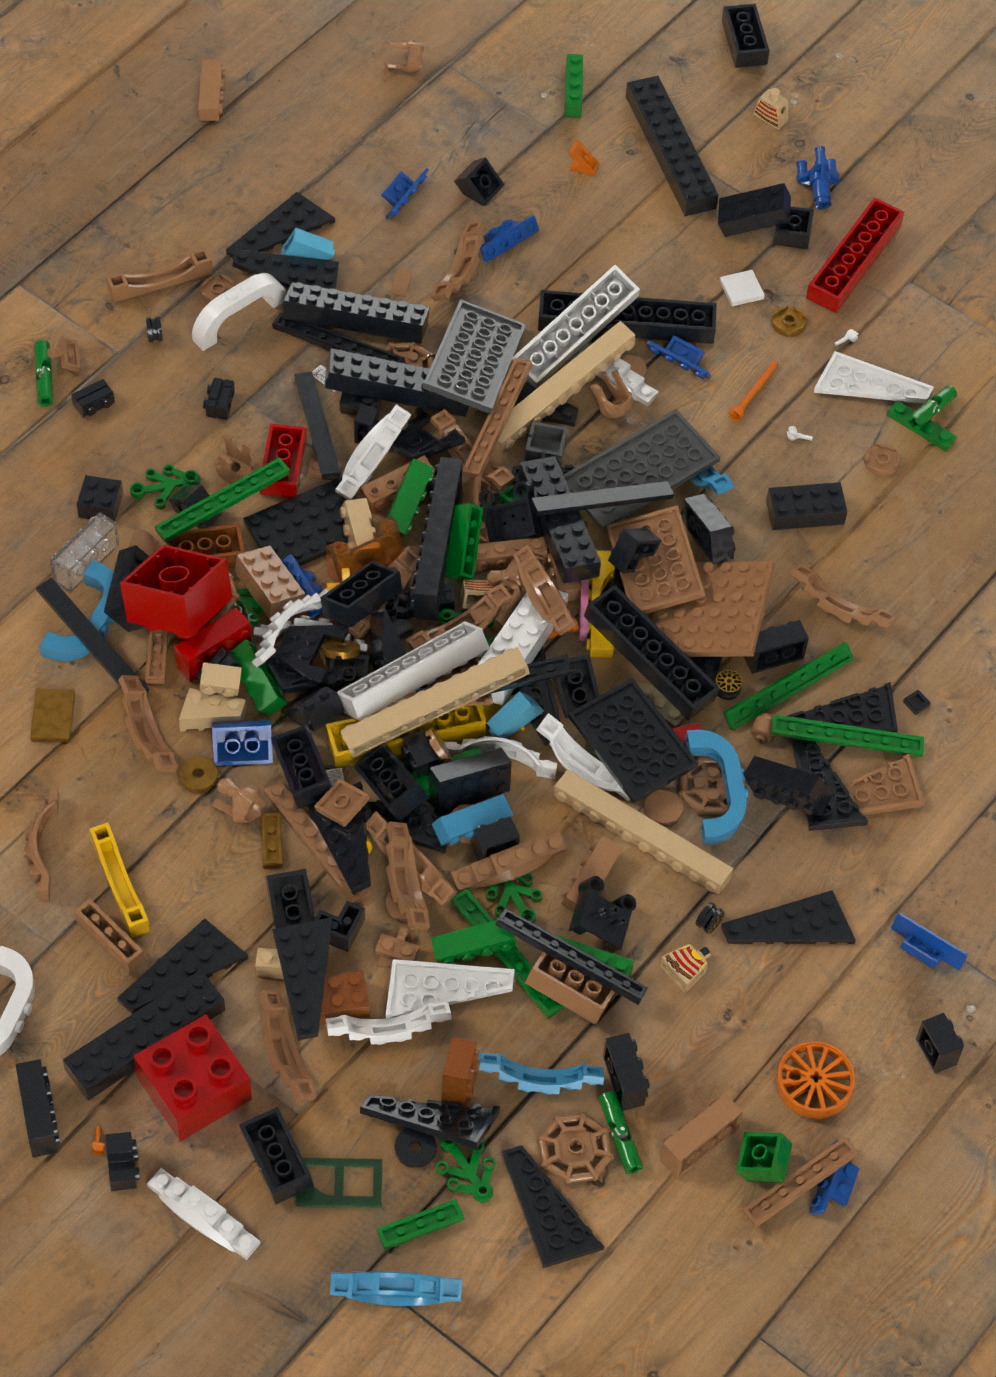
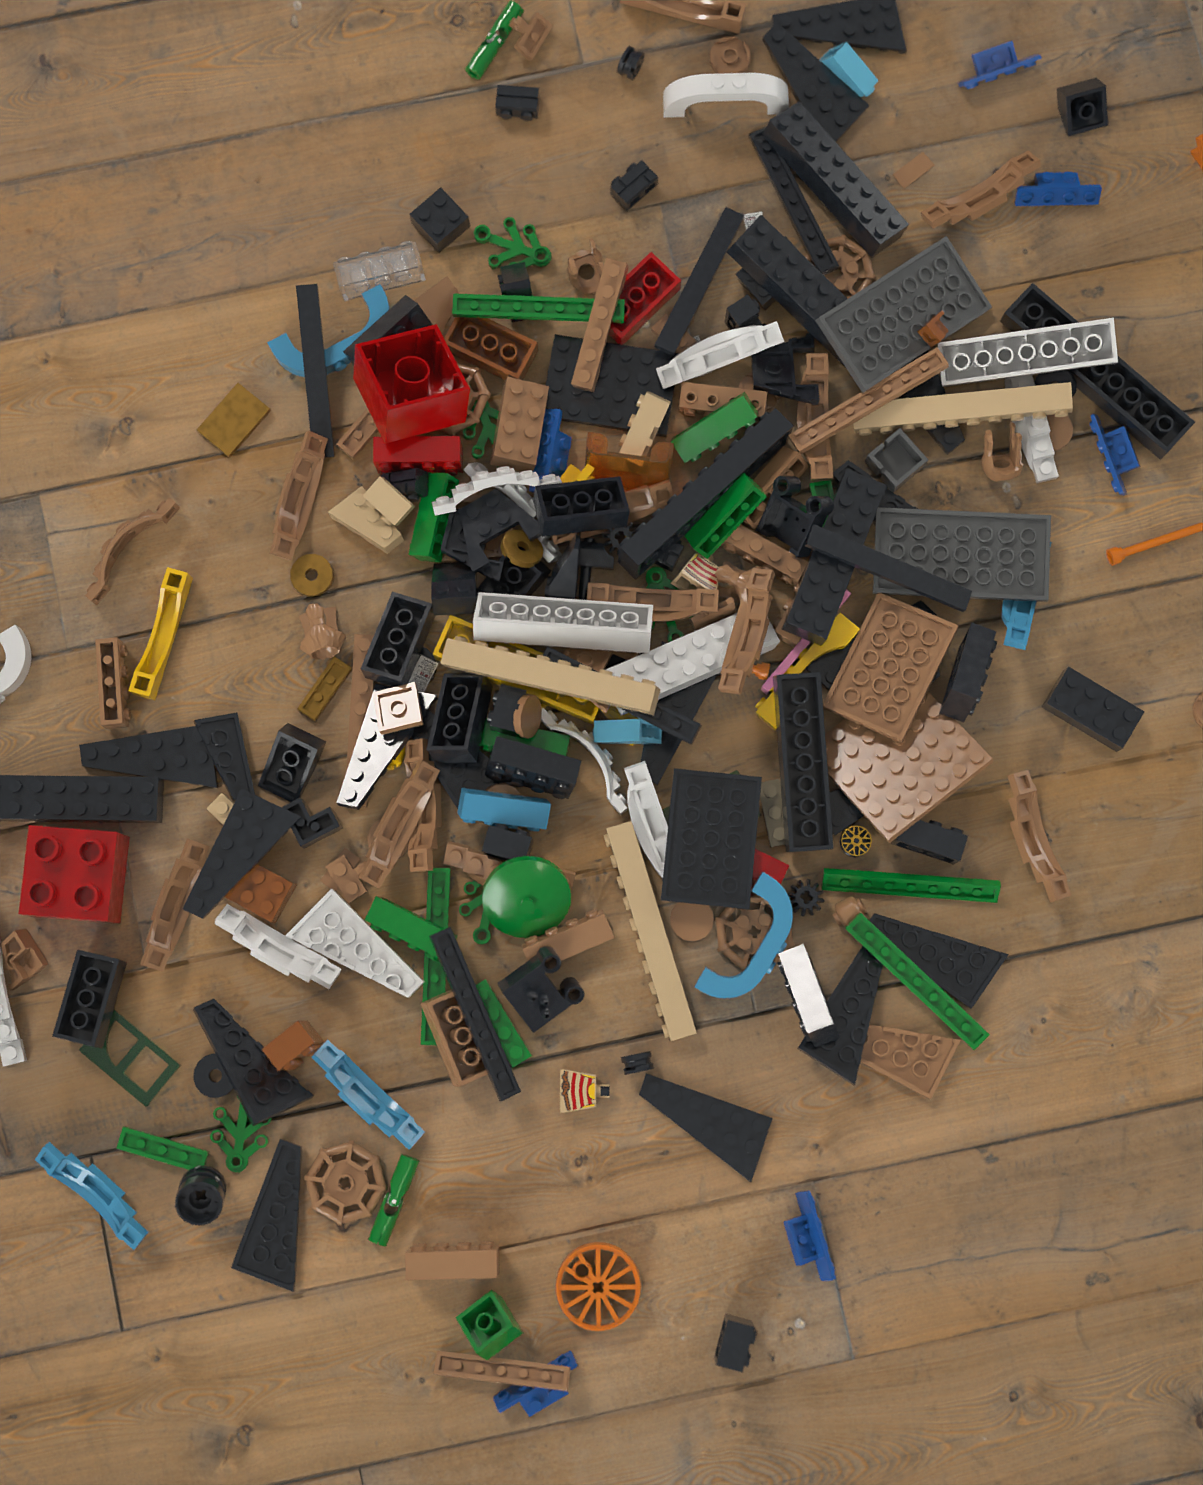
camera: 45 degrees right, 25 degrees up
(196, 1171) = (22, 957): none -> medium nougat slope
(236, 924) = (227, 749): none -> black wing
(242, 743) = (371, 571): blue slope -> none
(280, 492) = (599, 324): none -> medium nougat arch
(488, 1219) = (200, 1195): none -> black wheel
(502, 352) = (933, 330): none -> dark orange panel
(538, 862) = (526, 896): none -> green dish
(579, 687) = (716, 737): black slope -> none
(626, 1071) = (439, 1153): black brick -> none
(631, 547) = (874, 642): black brick -> none
(732, 735) = (811, 893): none -> black gear
(793, 434) = (1150, 619): white hand -> none
(916, 702) = (1018, 990): black tile -> none

